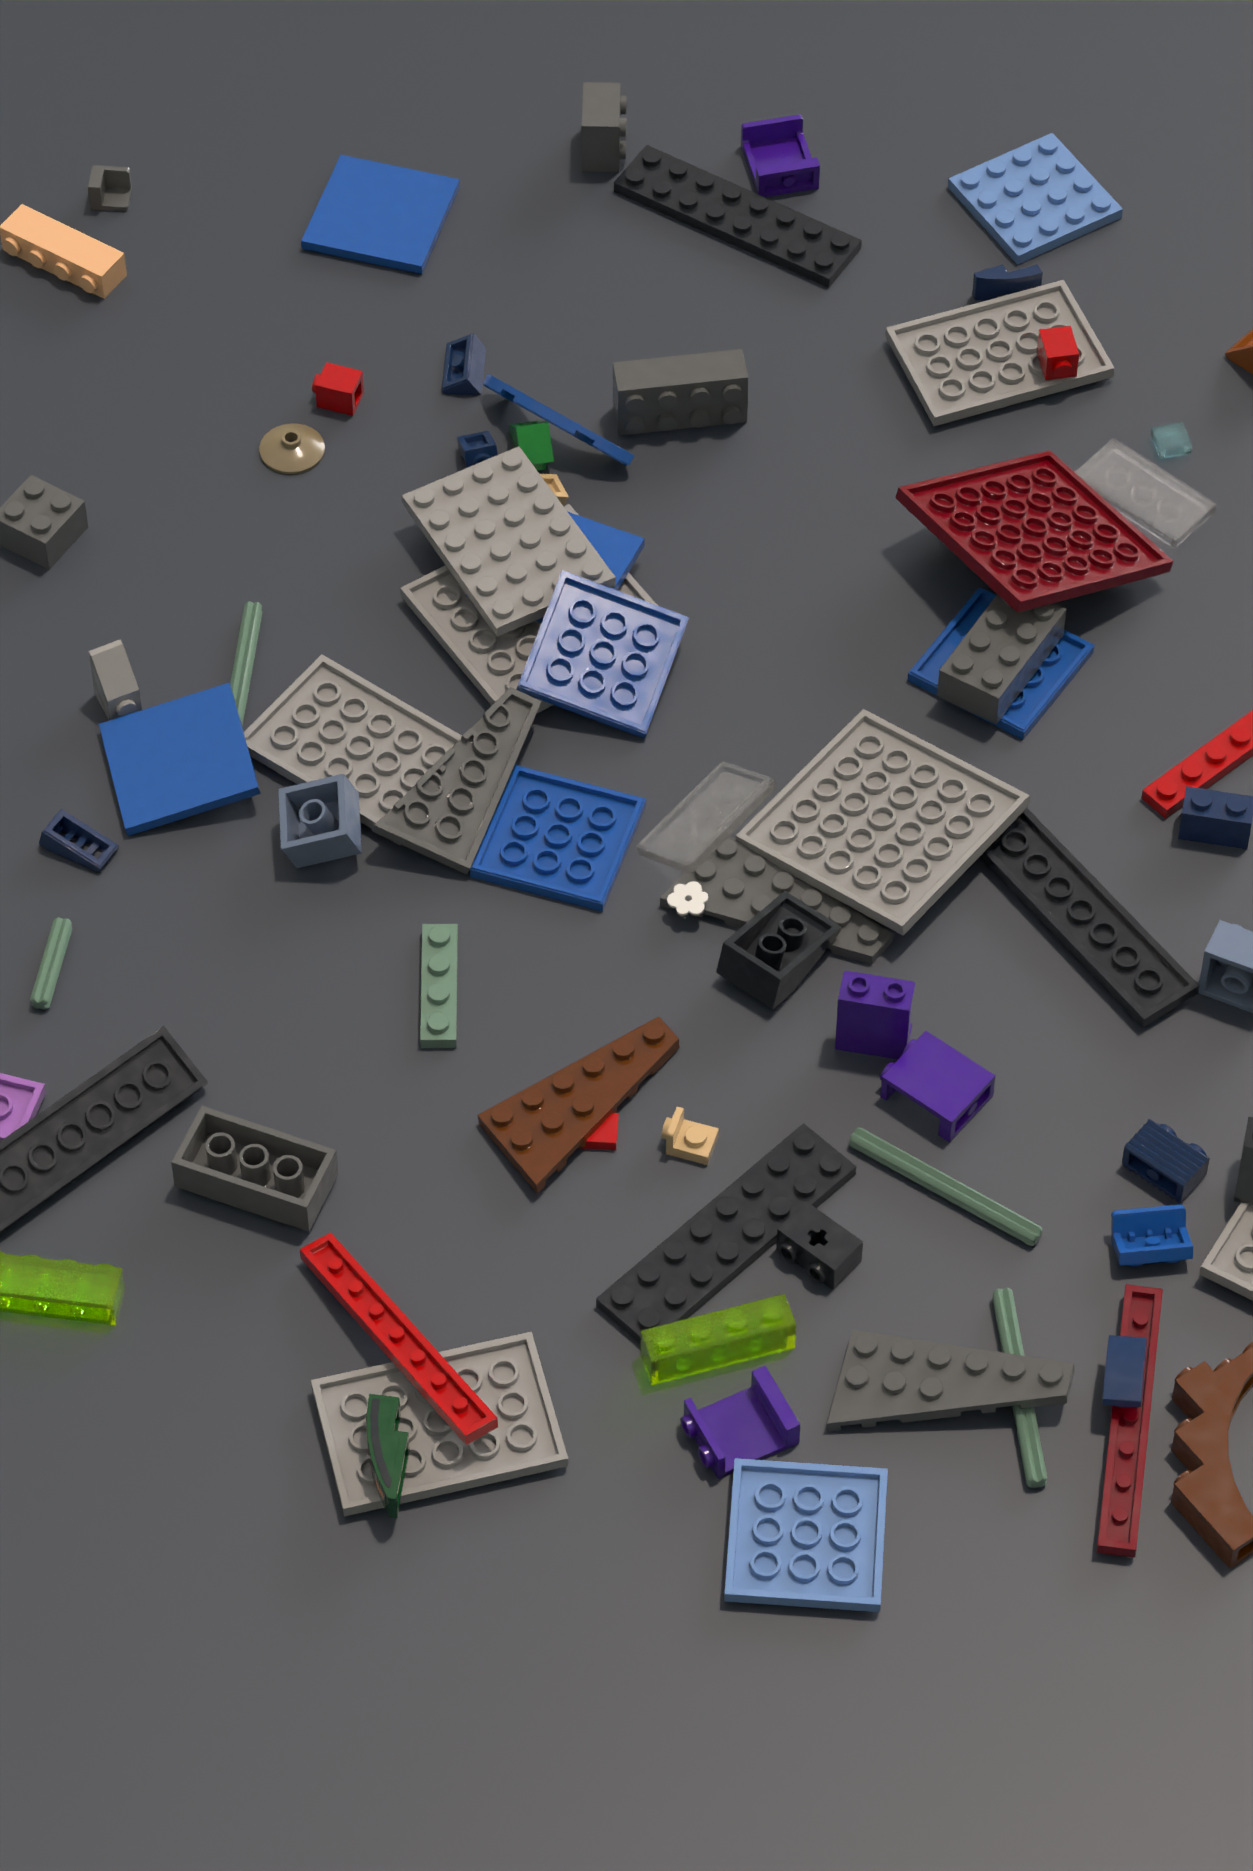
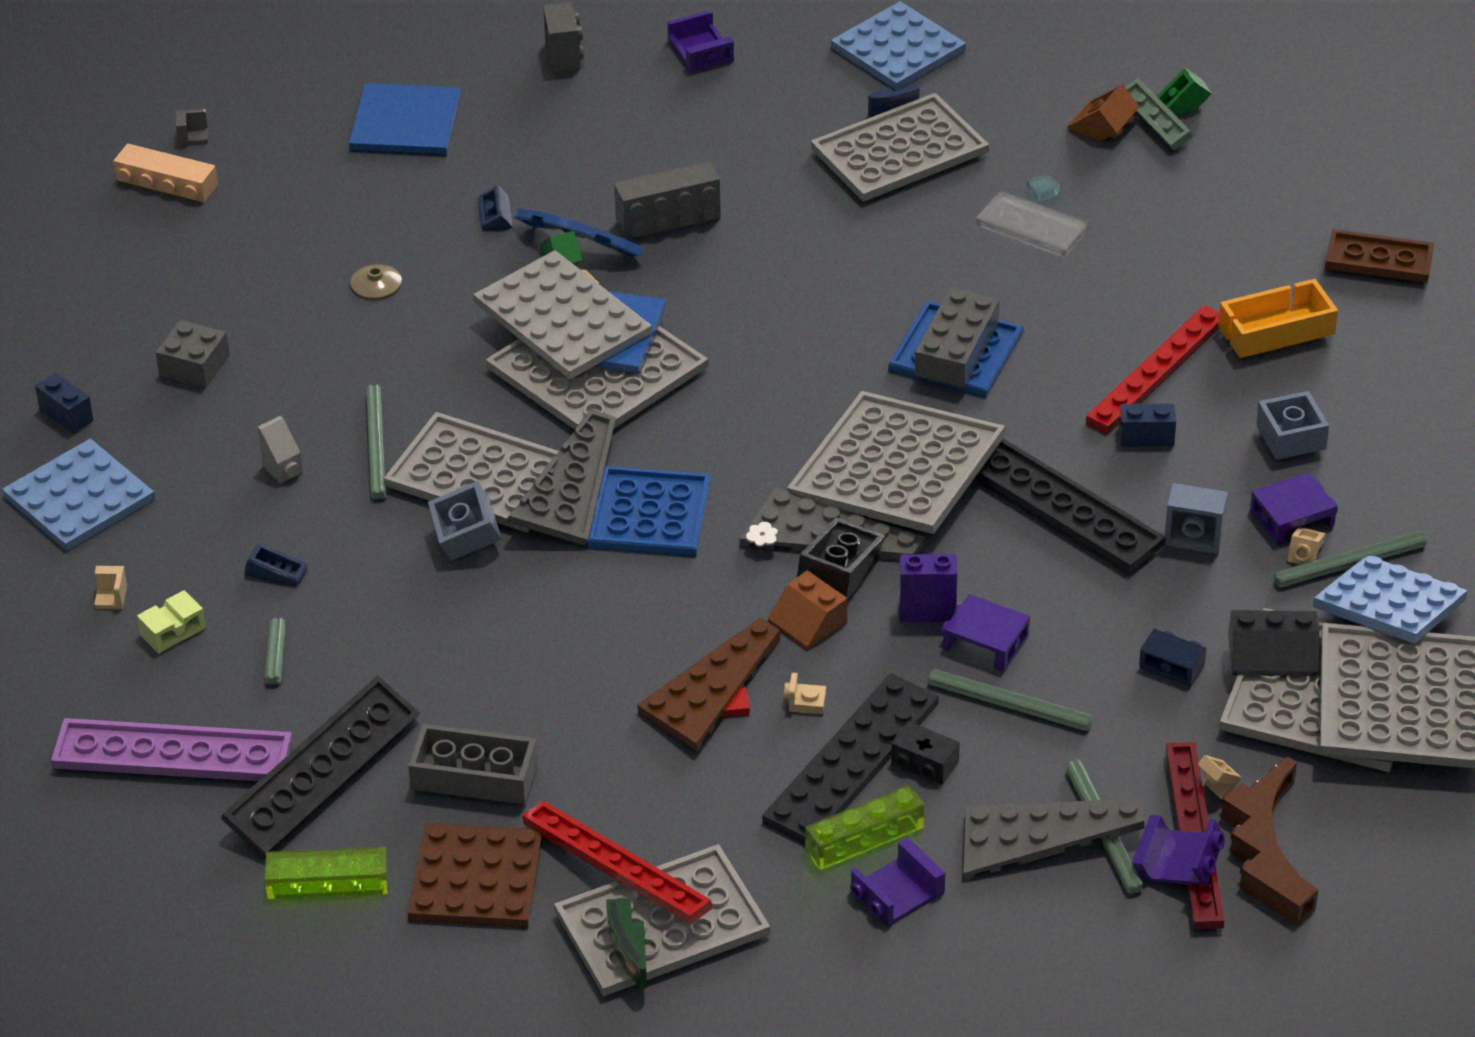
camera: 10 degrees left, 10 degrees down
(179, 759) = (342, 497): blue tile -> none
(227, 1320) = (475, 875): none -> reddish brown plate
(338, 388) = (403, 235): red brick -> none
(439, 986) = (583, 623): sand green plate -> none
(477, 447) = (519, 259): dark blue bracket -> none
(602, 654) = (654, 379): tile -> none
(706, 817) = (761, 479): clear tile -> none
(721, 1018) = (809, 610): none -> dark orange slope
(737, 216) = (678, 85): black plate -> none
(806, 1535) = (968, 951): medium blue plate -> none
(1033, 530) = (960, 252): dark red plate -> none
(1057, 352) = (945, 137): red brick -> none
(1099, 1446) = (1177, 855): none -> dark purple panel
(1124, 1371) = (1183, 798): dark blue slope -> none
(1150, 1235) = (1175, 707): blue bracket -> none
(1180, 1342) = (1218, 775): none -> tan bracket

